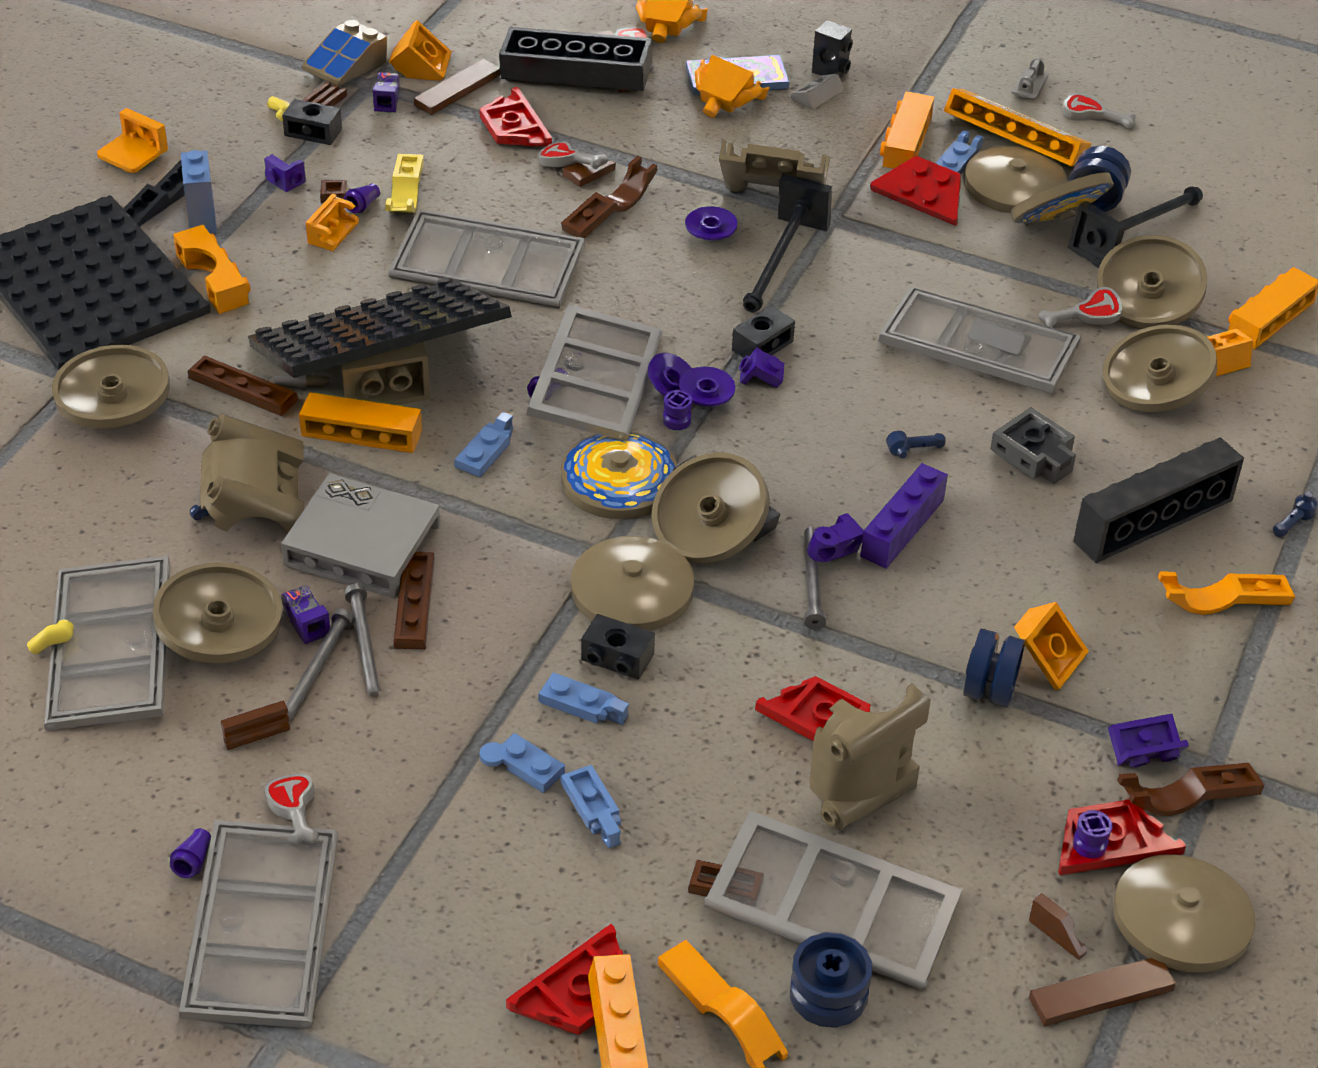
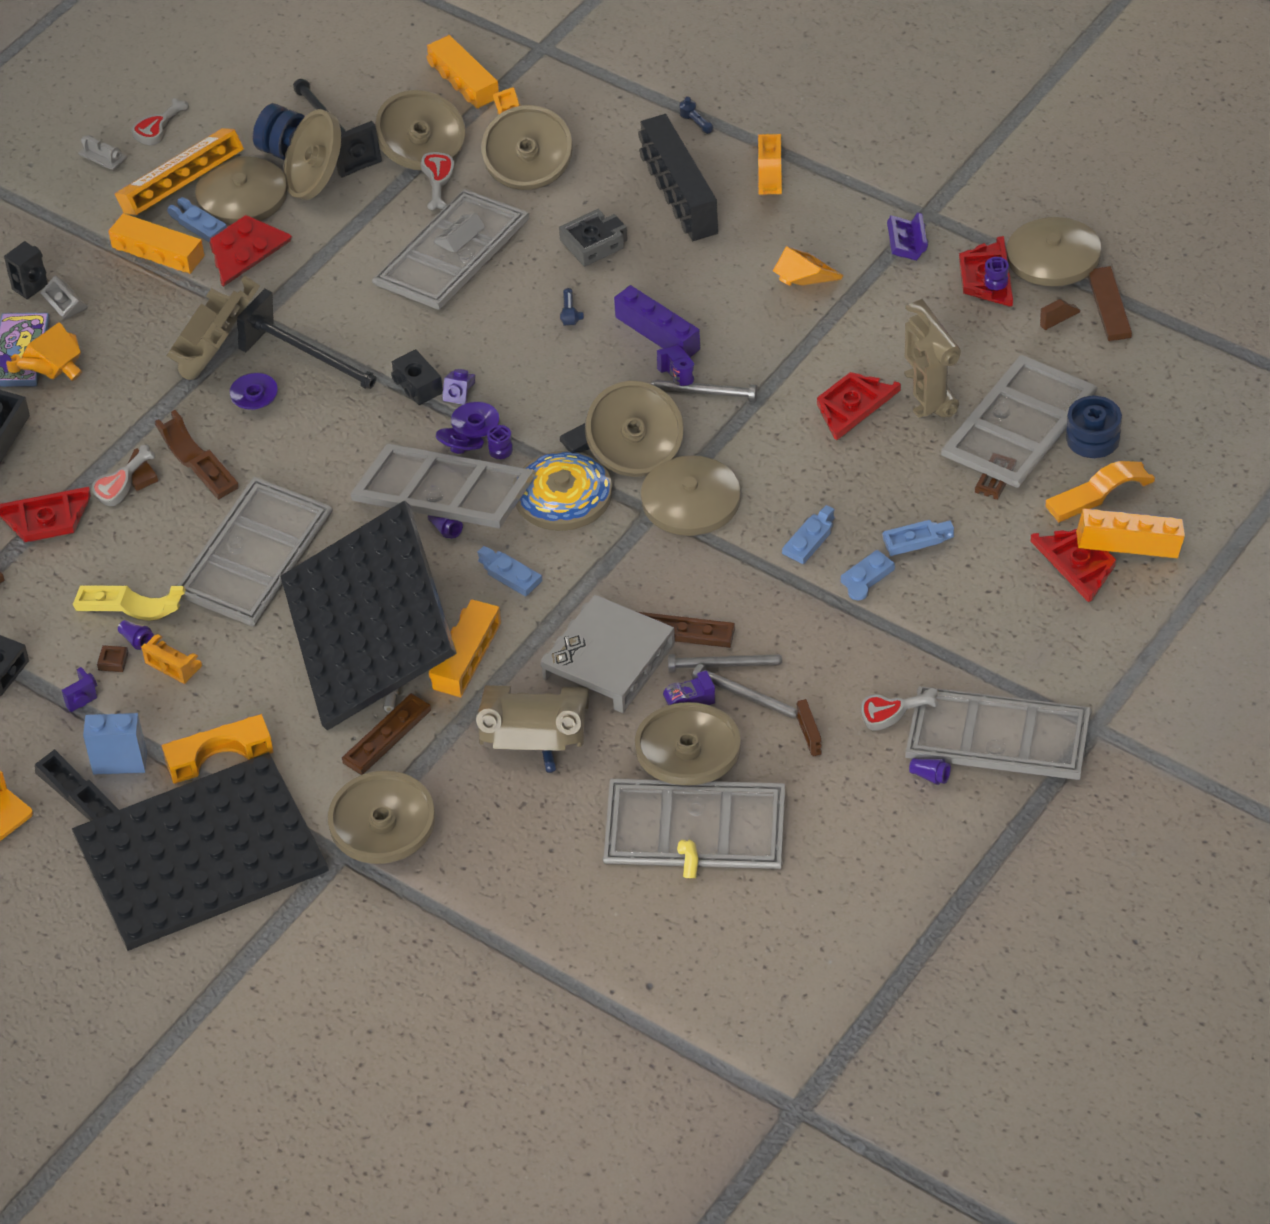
camera: 75 degrees left, 5 degrees up
(617, 646) = (764, 506): black brick -> none
(989, 666) = (835, 295): dark blue wheel -> none
(1193, 788) = (951, 221): reddish brown piece -> none

